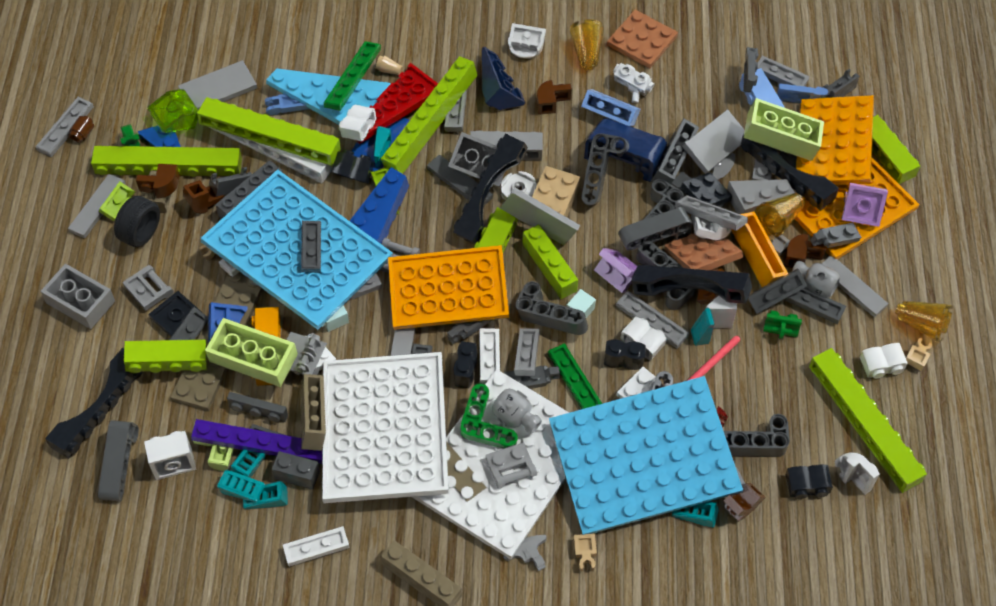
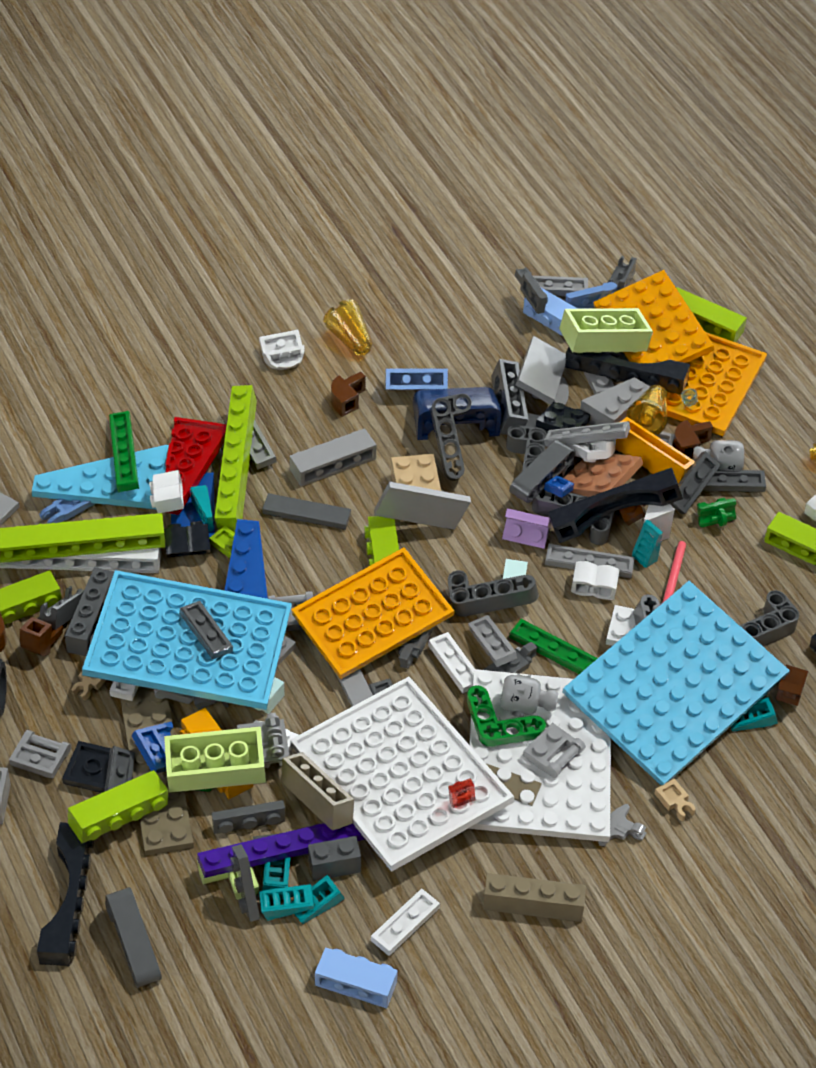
camera: 30 degrees left, 10 degrees down
(170, 455) = (191, 903): white brick -> none
(211, 459) = (244, 883): none -> dark grey plate
(252, 571) = (356, 977): none -> light blue brick
(387, 65) = (151, 428): tan cone -> none
(407, 467) = (461, 792): none -> clear red plate
(465, 364) = (438, 680): black brick -> none
(472, 156) = (321, 477): light grey brick -> none
(497, 84) = (283, 403): dark blue wedge -> none
(508, 154) = (355, 458): black arch -> none
(522, 179) = (364, 487): white plate -> none
(550, 261) = (455, 547): lime brick -> none
(623, 354) = (588, 602): black brick -> none
(636, 82) = (420, 345): white brick -> none
(642, 38) = (398, 305): nougat plate -> none
(662, 247) = (559, 486): none -> blue tile
(818, 215) = (689, 392): none -> clear light blue hinge
(836, 235) = (715, 409): dark grey hinge -> none
(857, 288) = (764, 453): light grey tile -> none
(864, 204) = (722, 370): lavender bracket -> none

